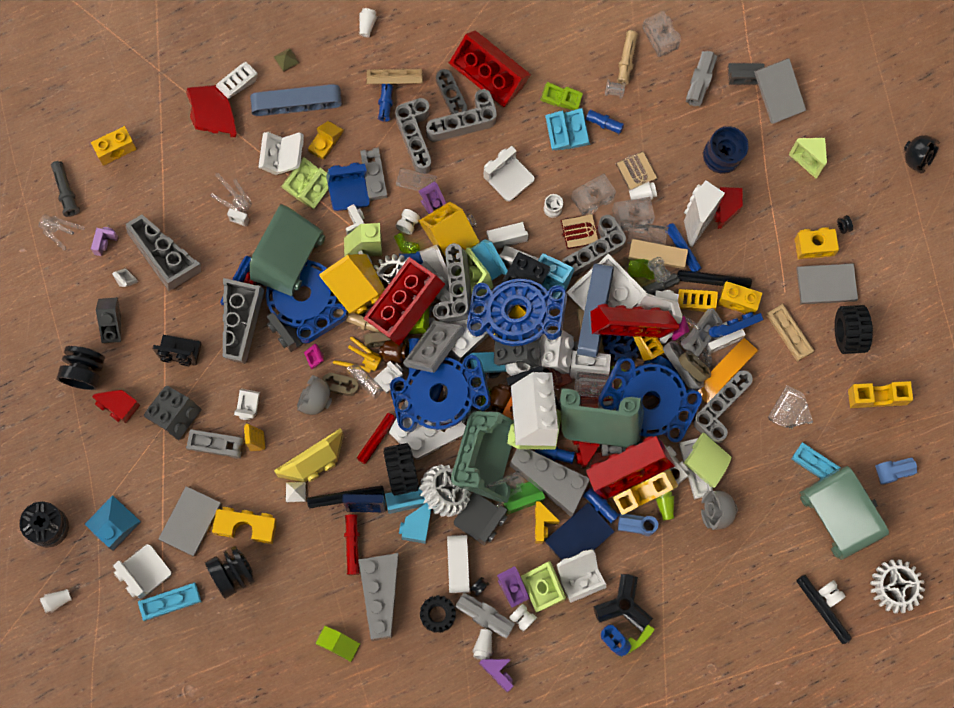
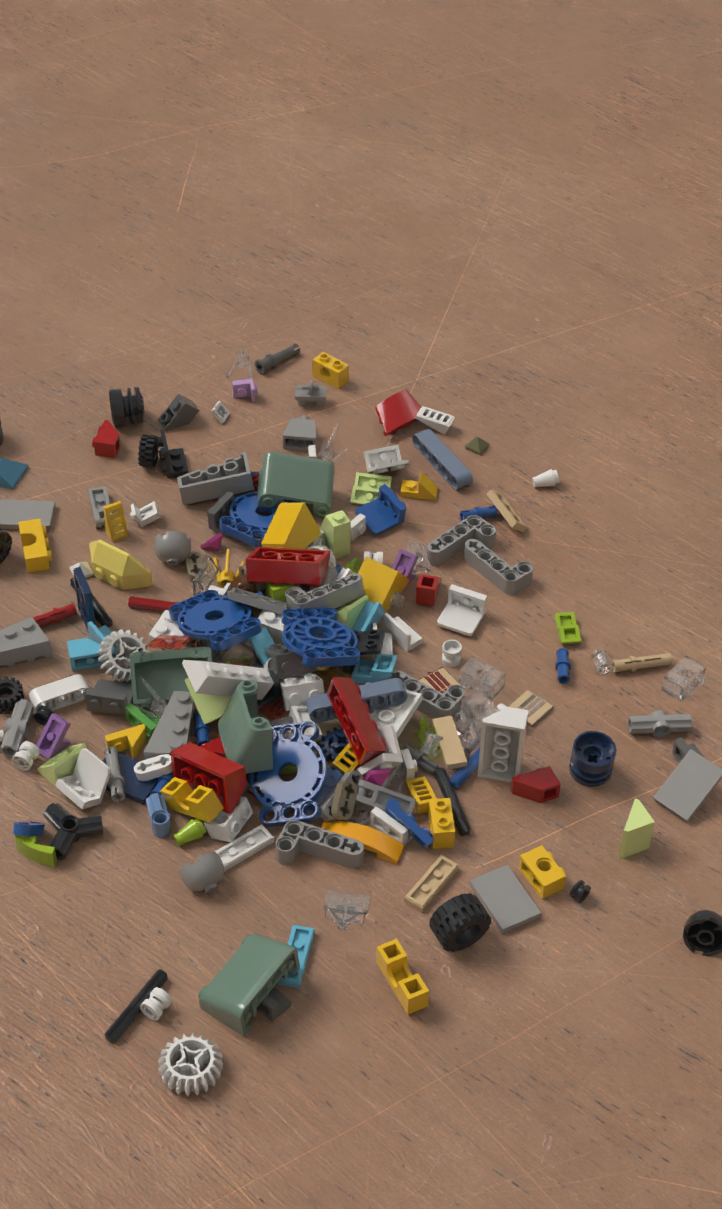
camera: 70 degrees right, 30 degrees down
(142, 180) = (310, 393): none -> light grey hips
(160, 369) = (148, 451): none -> black tyre
(164, 256) = (250, 423): light grey wedge -> none
(172, 412) = (115, 474): dark grey bracket -> none
(197, 213) = (299, 434): none -> light grey torso
(374, 174) = (406, 528): light grey plate -> none
(401, 469) = (130, 613): black tyre -> none
(446, 444) = (169, 641): none -> clear red piece
(450, 102) = (519, 547): dark grey beam -> none
(465, 188) = (427, 589): none -> red slope
(489, 68) = (559, 568): red slope -> none
(567, 129) = (536, 643): medium azure slope -> none
(579, 546) = (115, 780): none -> light grey pin
(583, 510) = (153, 767): none -> white beam
(708, 460) = (252, 848): yellowish green slope -> none
(892, 471) = (321, 1018): medium blue piece -> none

